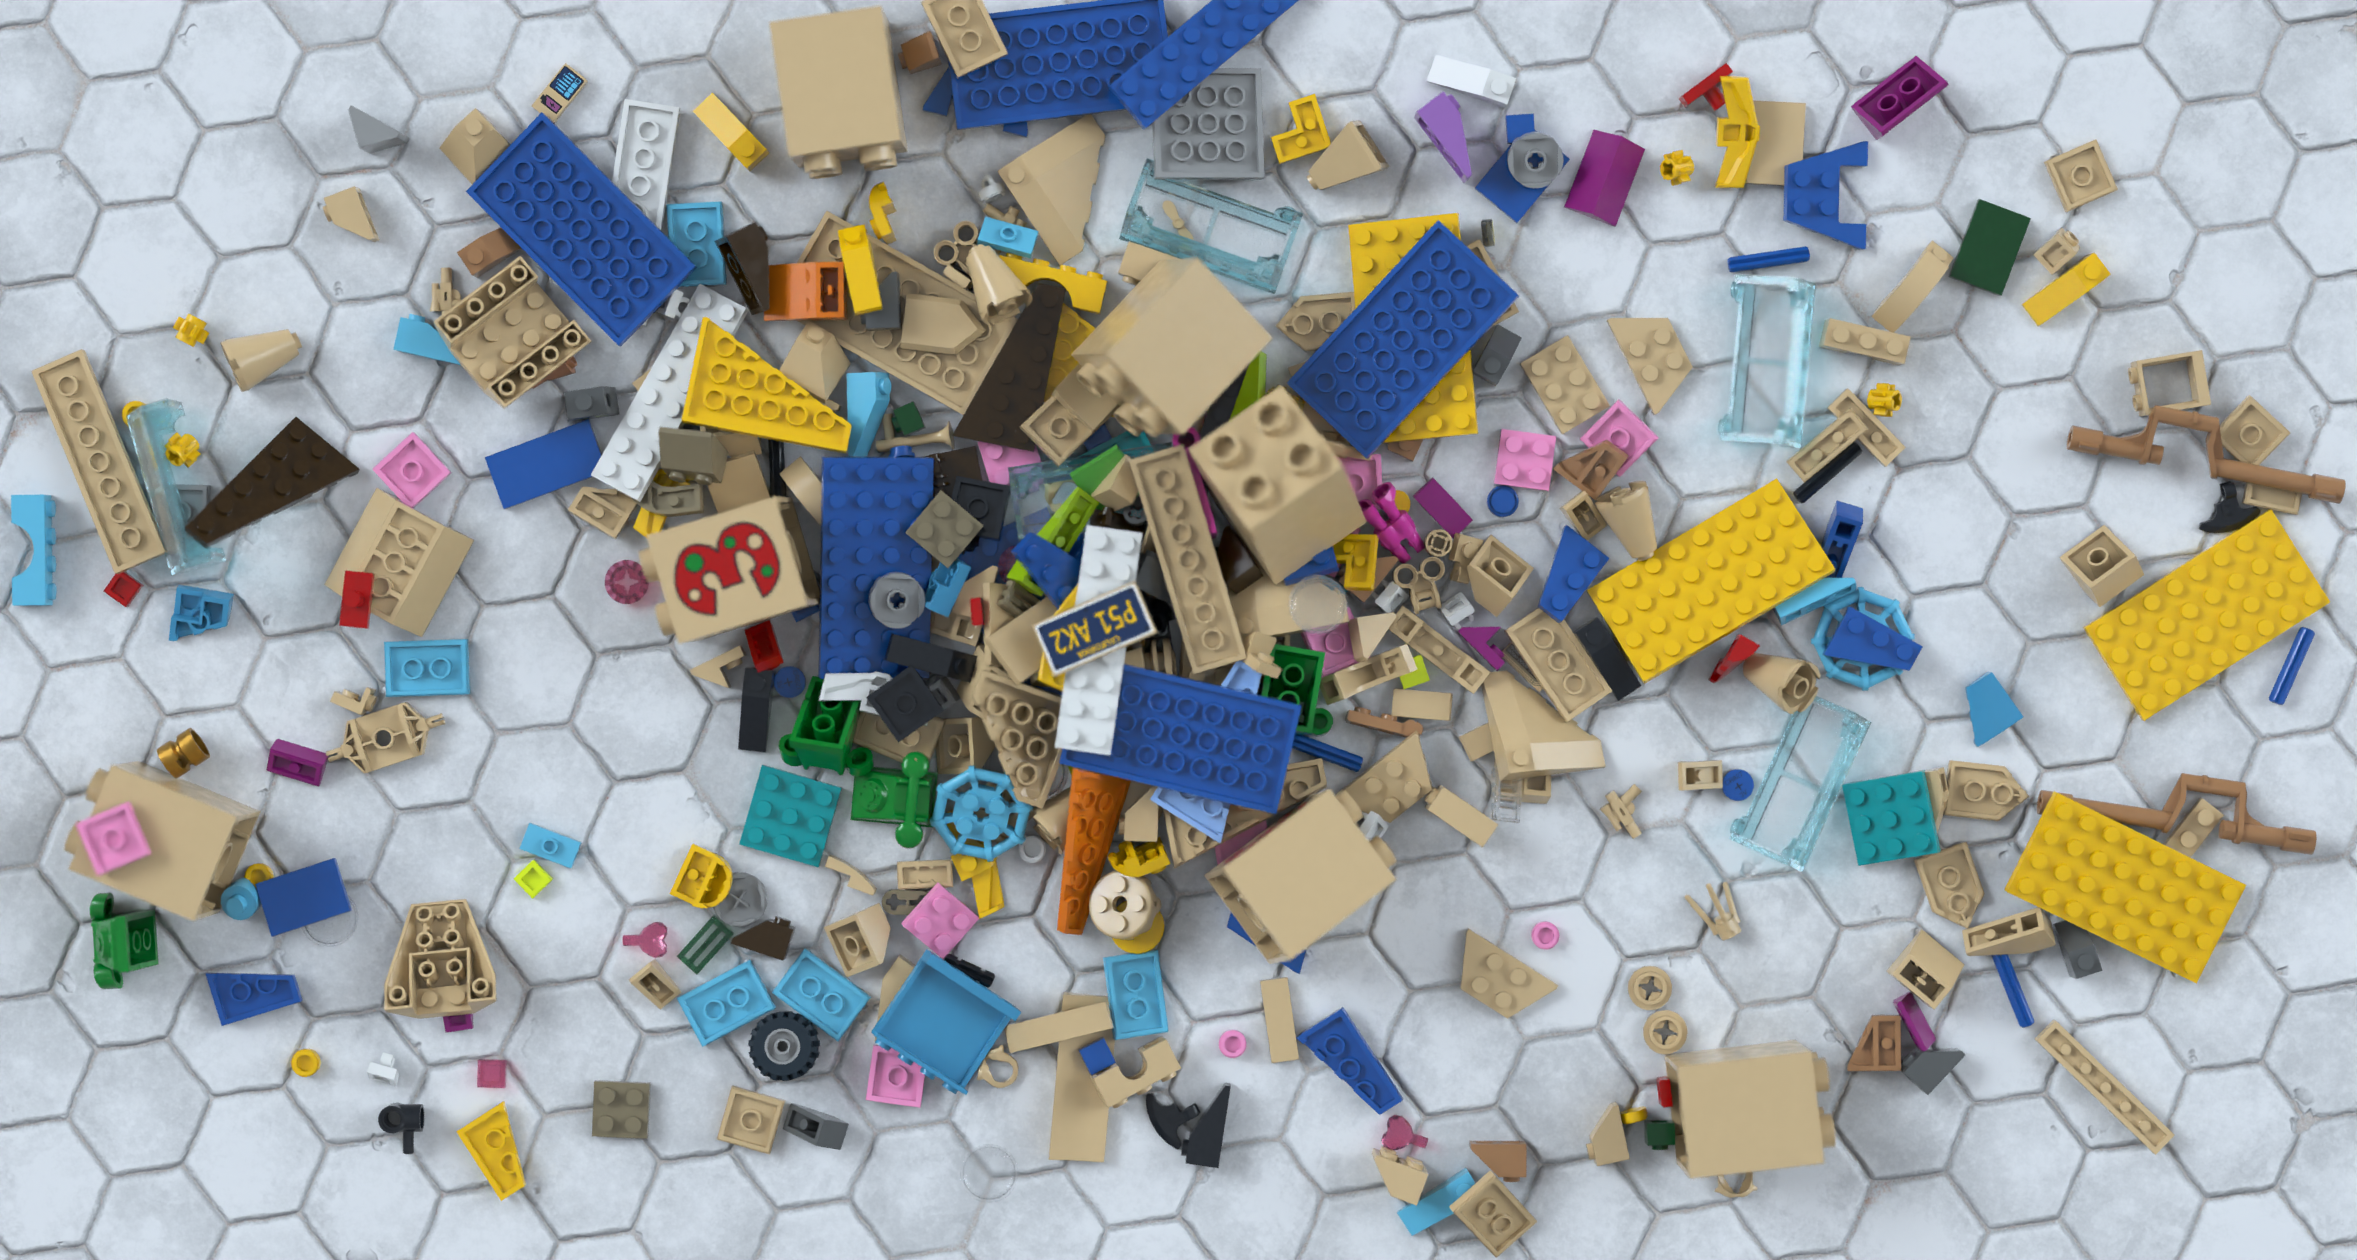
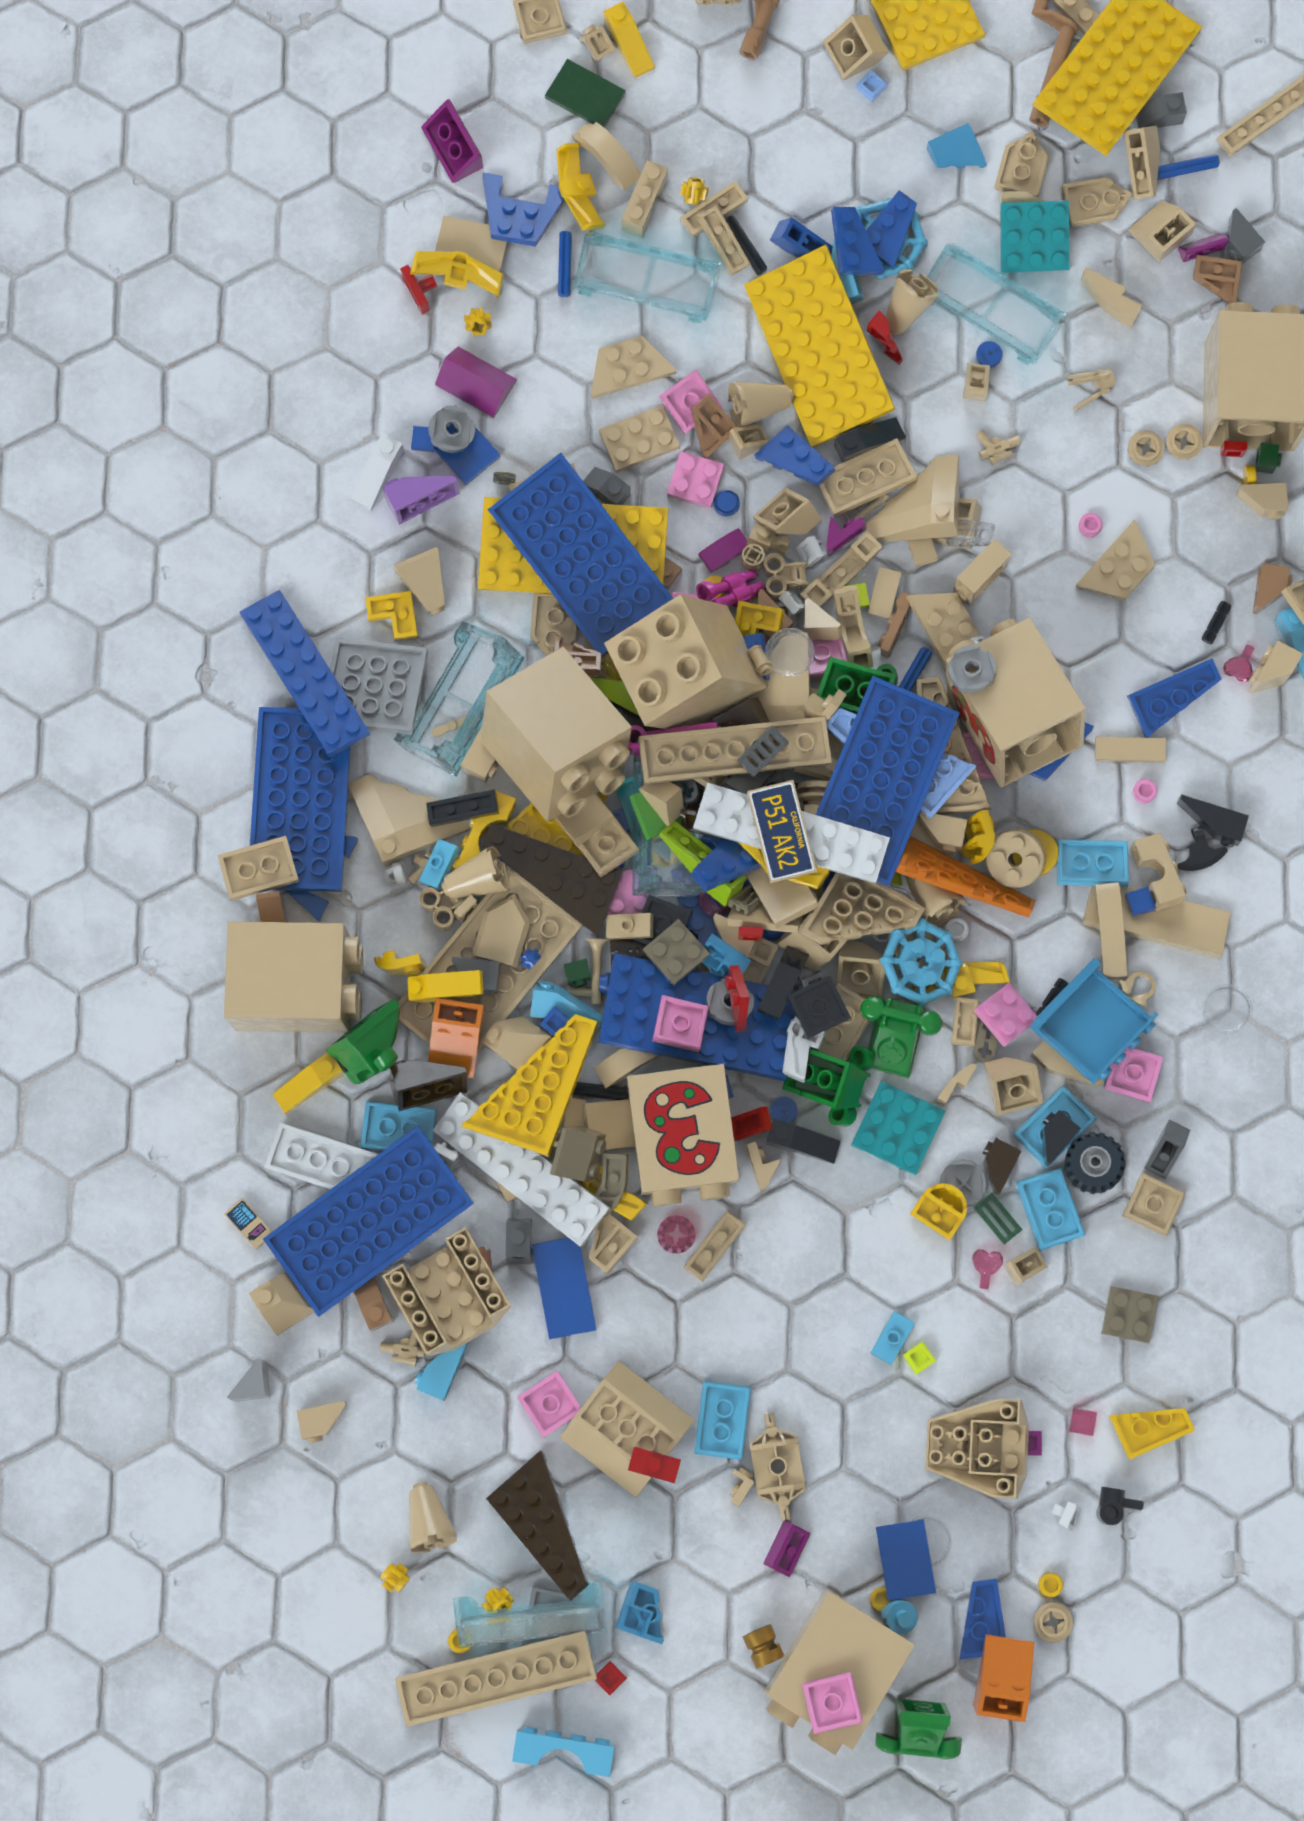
camera: 80 degrees left, 10 degrees down
(189, 1026) = (1004, 1678): none -> orange slope
(253, 1065) = (1062, 1629): none -> tan gear
(621, 627) = (714, 1246): none -> tan tile
(780, 192) = (368, 1044): none -> green piece
(807, 998) = (1056, 1135): none -> black slope
(842, 403) = (554, 1021): none -> blue tile
(858, 547) = (680, 1023): none -> bright pink plate
(898, 609) = (738, 997): none -> red wing
(912, 361) = (530, 958): none -> blue plate
(970, 470) = (629, 926): none -> tan plate
(1077, 253) = (462, 808): none -> black tile
(1192, 606) = (777, 736): none -> dark grey slope
(1278, 355) = (586, 658): none -> medium nougat wing
(1297, 574) = (762, 664): none -> tan pin
(1333, 826) = (978, 658): none -> light grey plate
(1449, 1099) = (1216, 622): none -> black axle
(1830, 920) = (1110, 297): none -> tan slope
(1841, 601) = (853, 245): none -> blue wing
(1866, 257) = (577, 187): none -> yellow plate
(2056, 593) = (871, 85): none -> light blue tile

